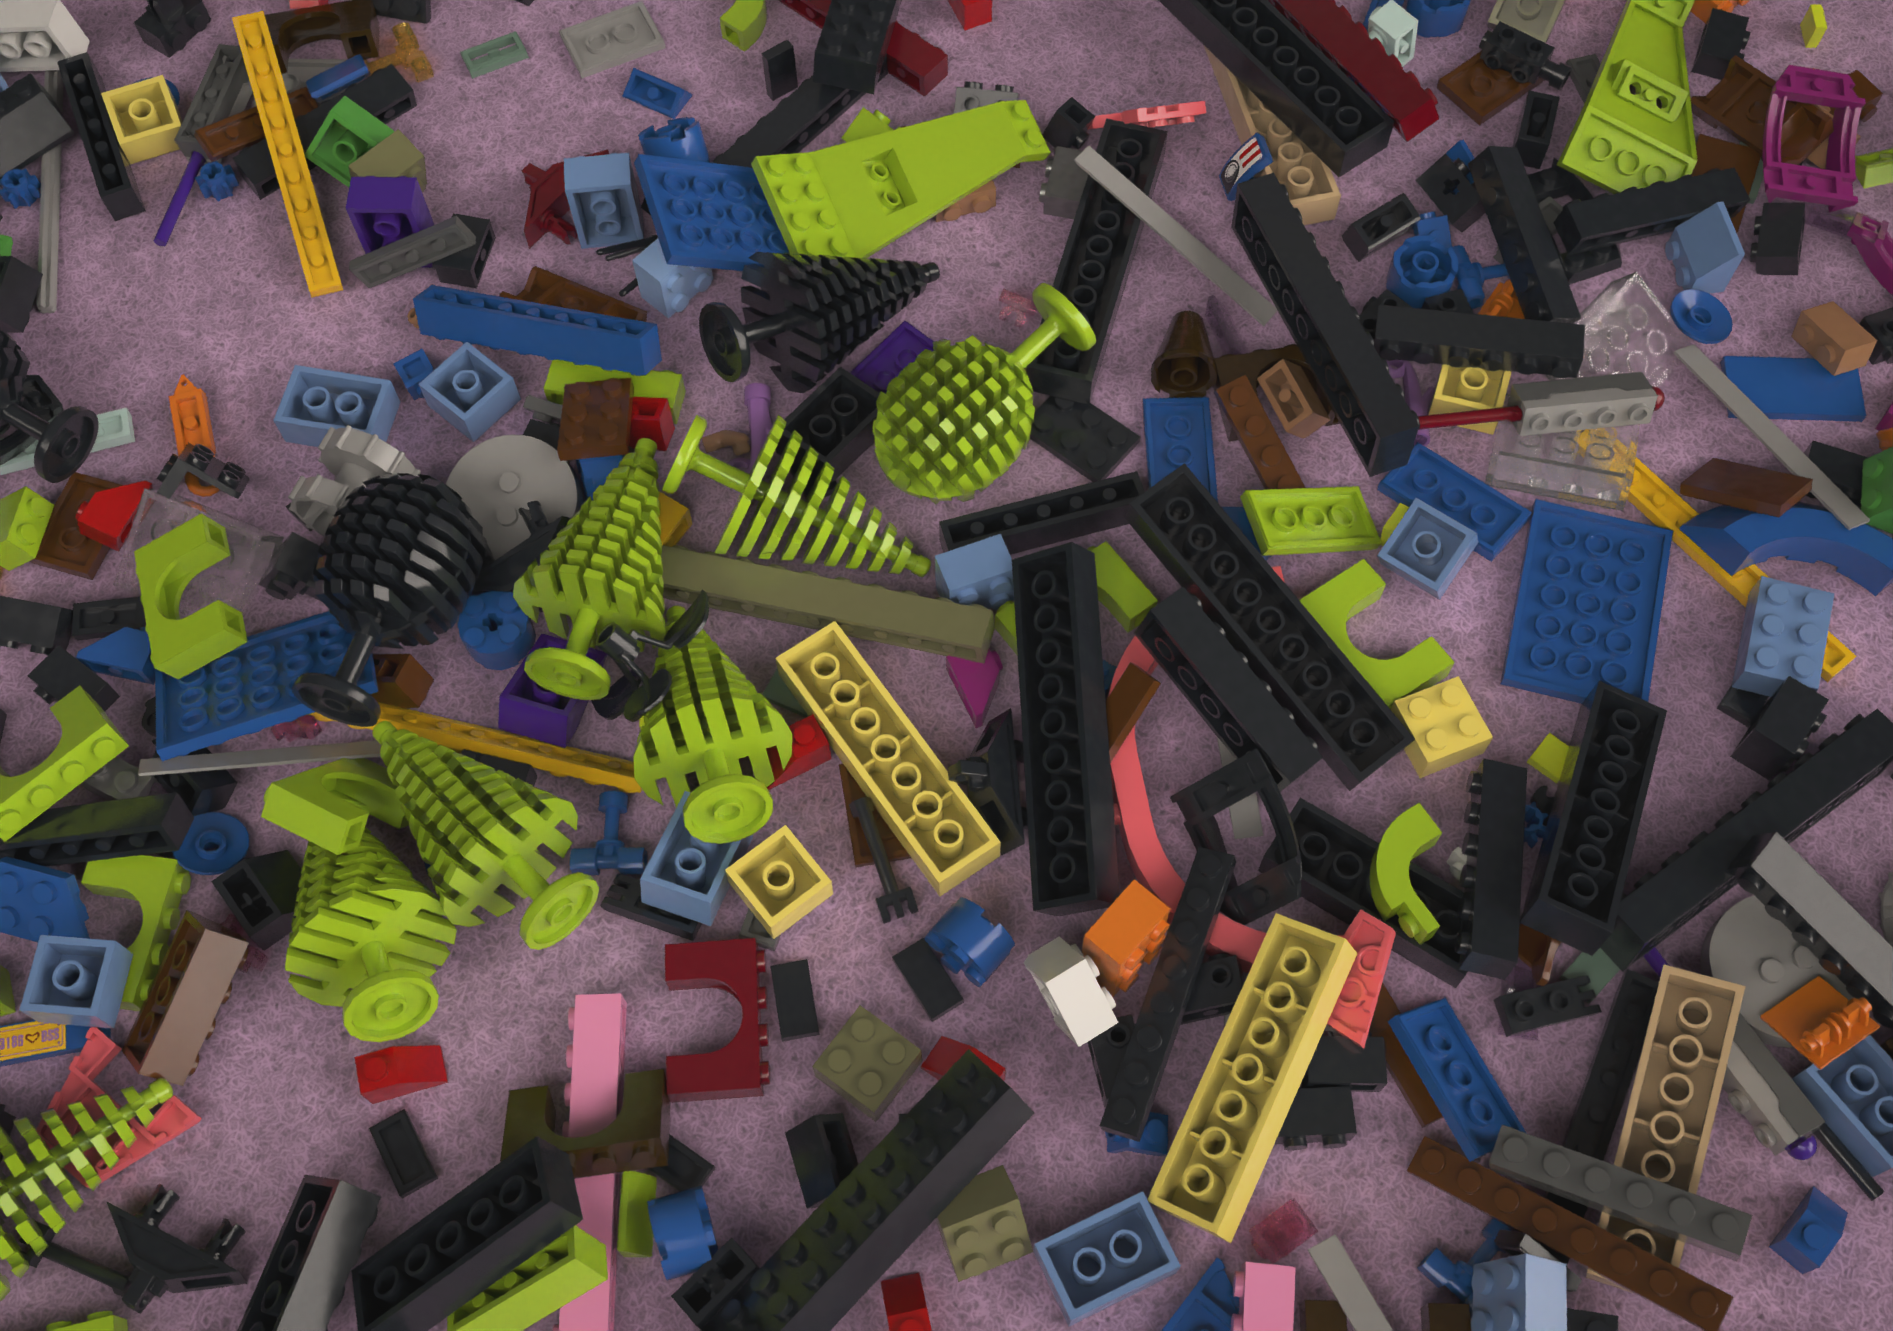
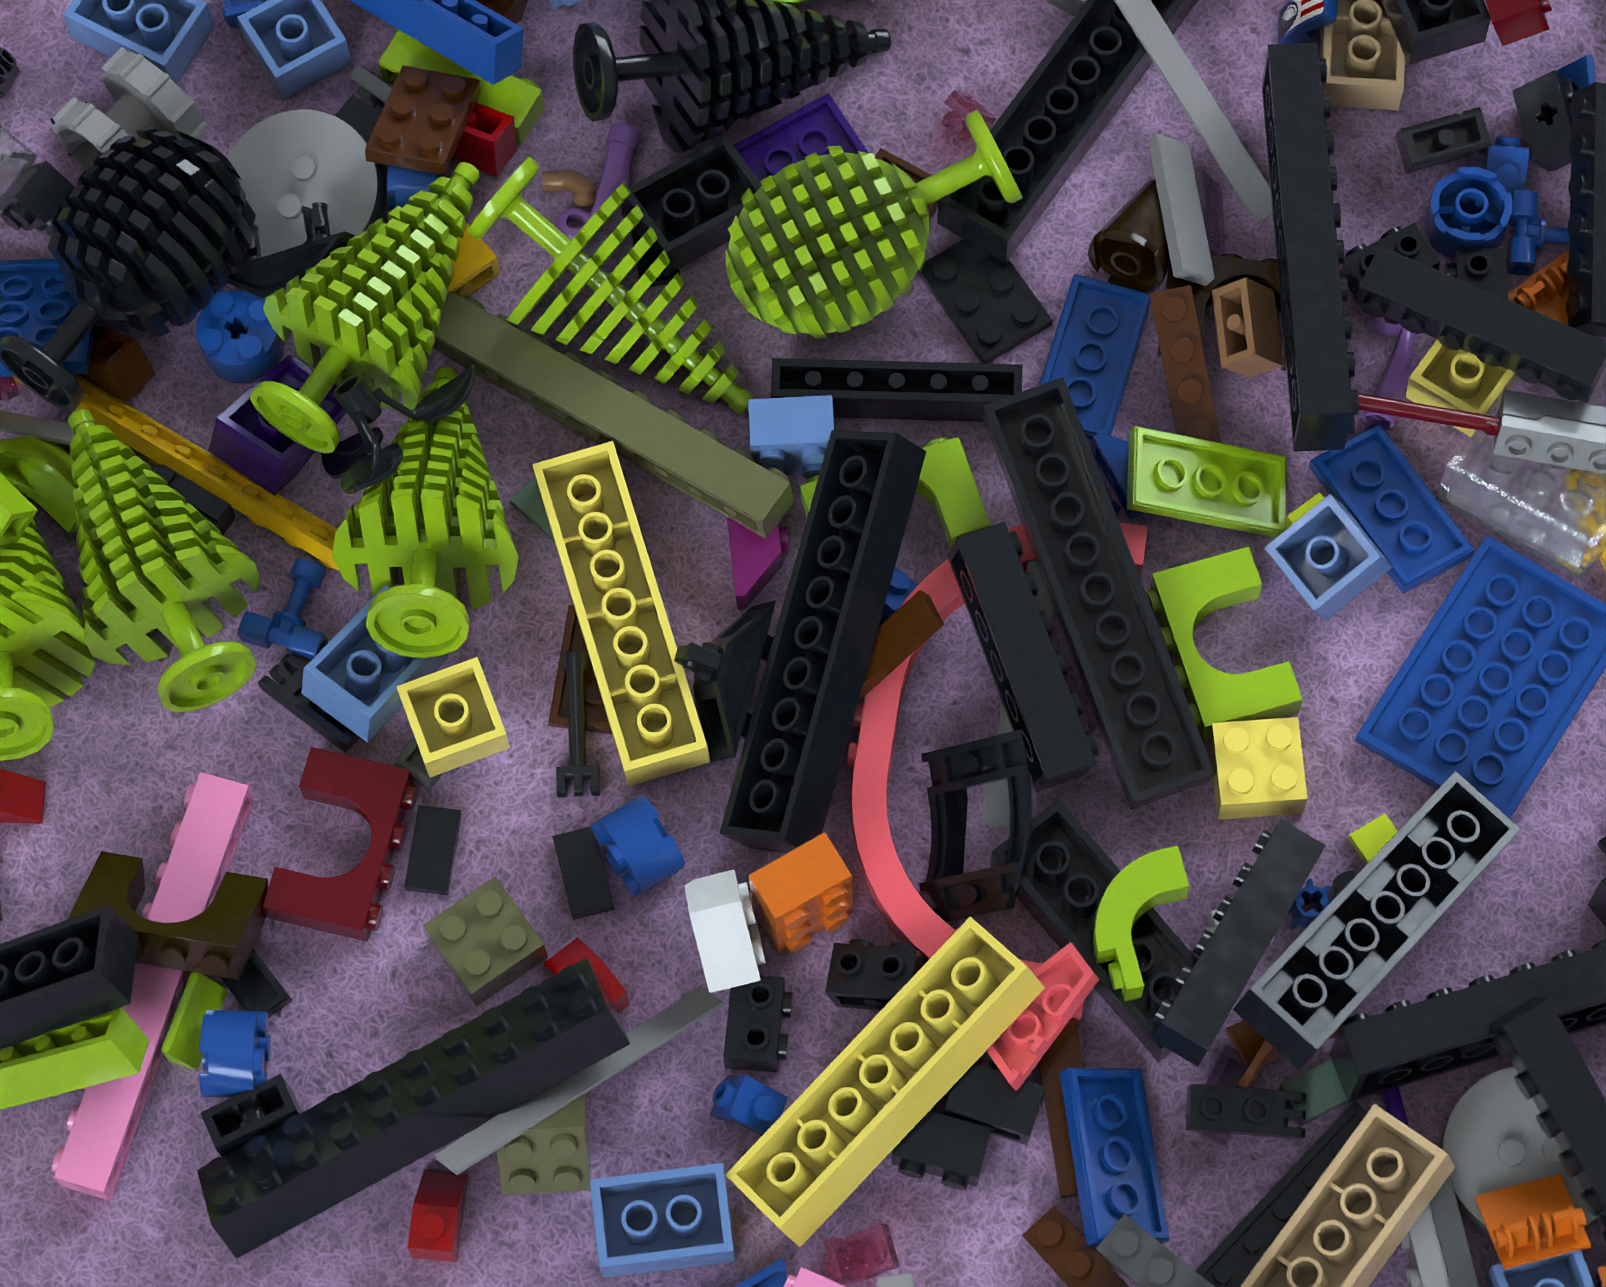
camera: 20 degrees right, 5 degrees up
(809, 750) = (535, 579): red slope -> none
(821, 1155) = (403, 1019): black brick -> none
(955, 1217) = (521, 1118): none -> light grey piece
(1168, 995) = (830, 965): black plate -> none
(1211, 326) = (1181, 210): none -> light grey tile

